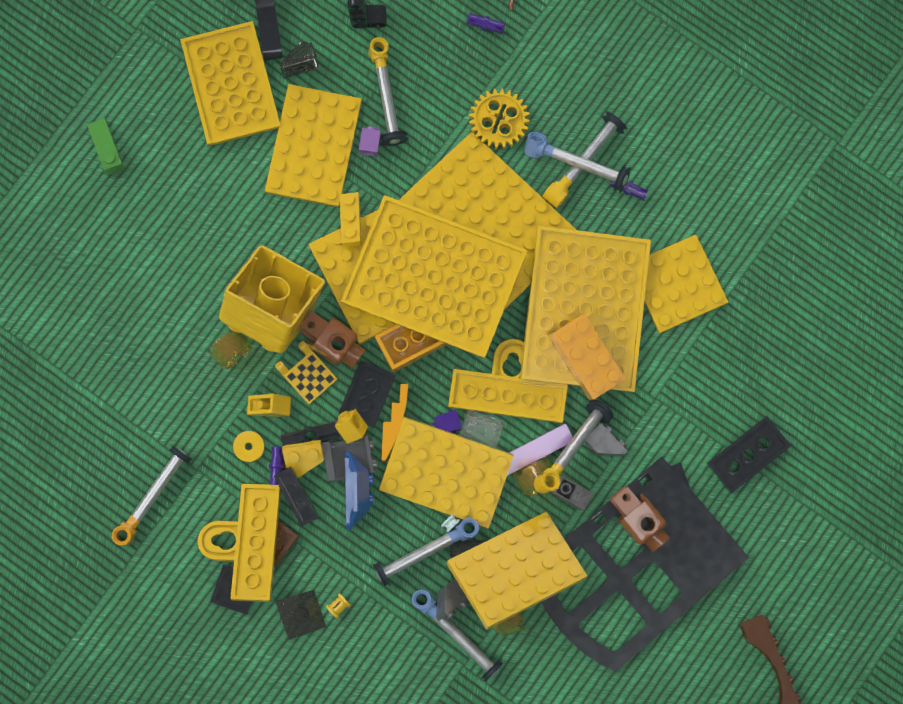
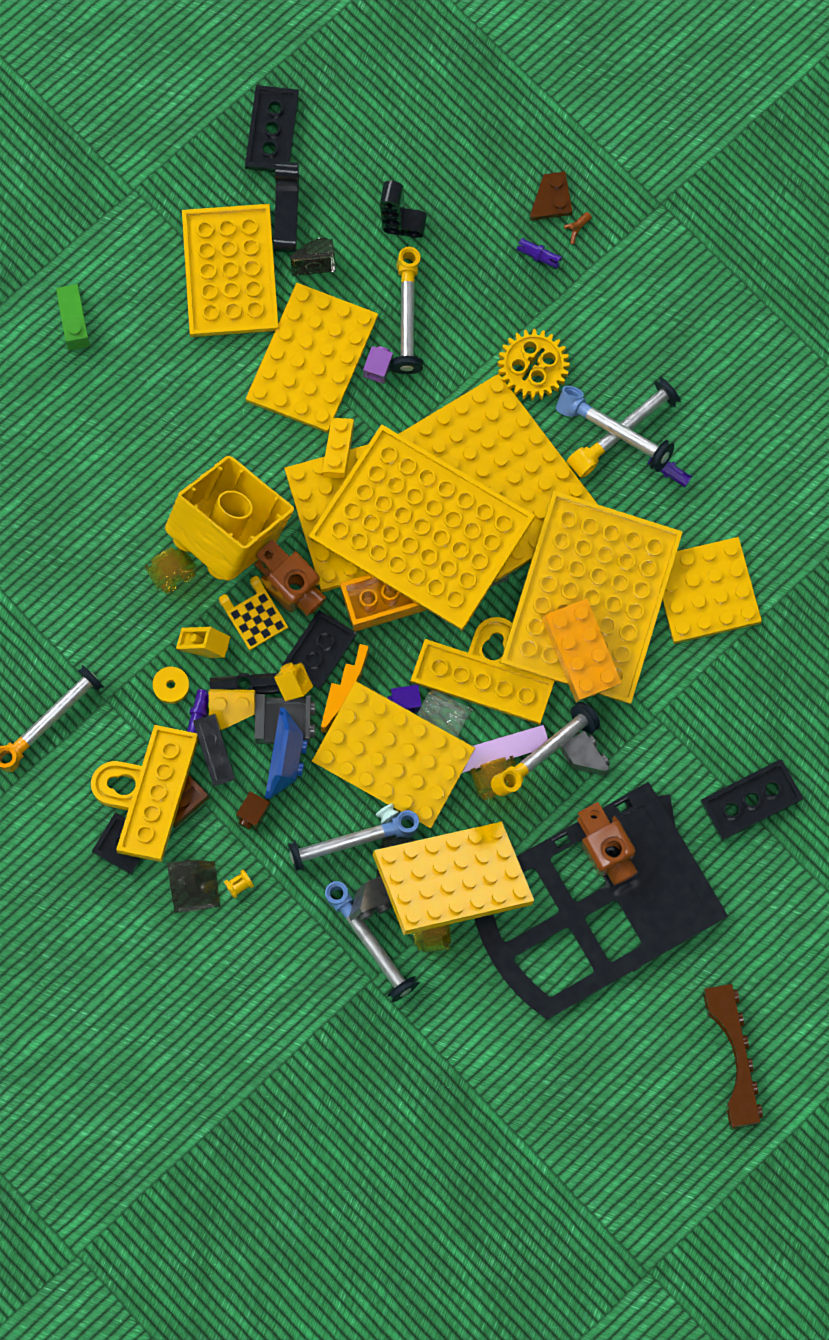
camera: 15 degrees right, 5 degrees down
(338, 542) = (252, 811): none -> reddish brown brick
(572, 494) = (534, 804): flat silver slope -> none

